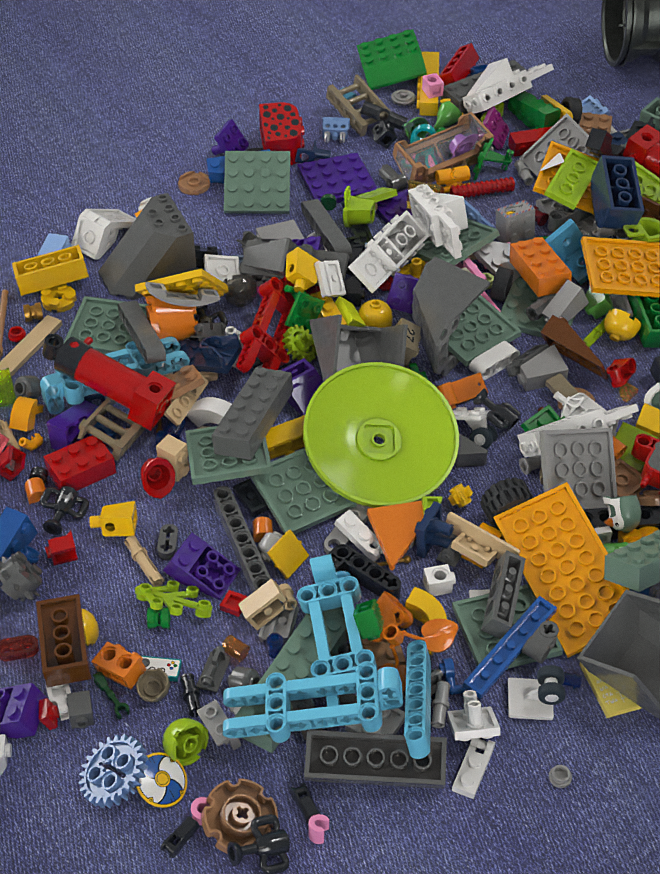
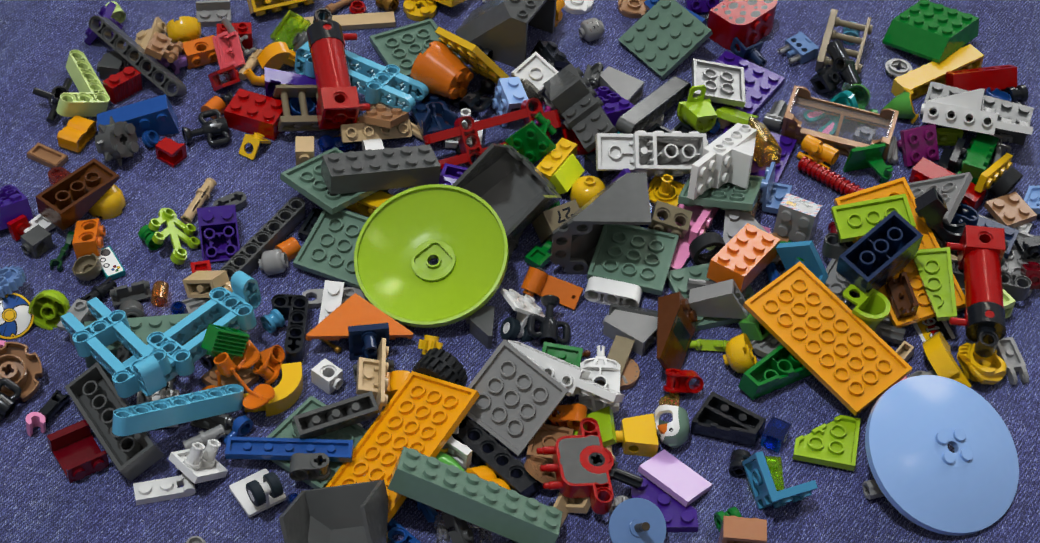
camera: 50 degrees right, 0 degrees up
(110, 481) = (255, 140): none -> yellow bracket
(116, 519) = (221, 163): yellow torso -> none
(141, 332) = (397, 67): dark grey beam -> none
(157, 477) = (278, 159): red piece -> none
(200, 216) = (591, 29): none -> light grey head
(203, 297) = (452, 59): light grey slope -> none
(203, 330) = (451, 101): dark grey hinge -> none
(238, 300) = (508, 95): none -> light blue bracket
(288, 554) = (273, 273): yellow piece -> none
(301, 269) = (562, 111): yellow torso -> none
(330, 278) = (576, 133): white plate -> none
(333, 181) = (723, 82): none -> light grey plate
(381, 813) = (77, 451): none -> dark red panel
(428, 500) = (398, 329): lime tile -> none
(432, 85) = (920, 73): bright pink brick -> none
(462, 144) = (857, 131): medium lavender piece -> none
(485, 58) = (1019, 93): none -> black wheel
(519, 120) = (951, 158): none -> black bracket
(555, 161) = (879, 194): white sticker -> none
(623, 512) = (489, 449): sand green piece -> none

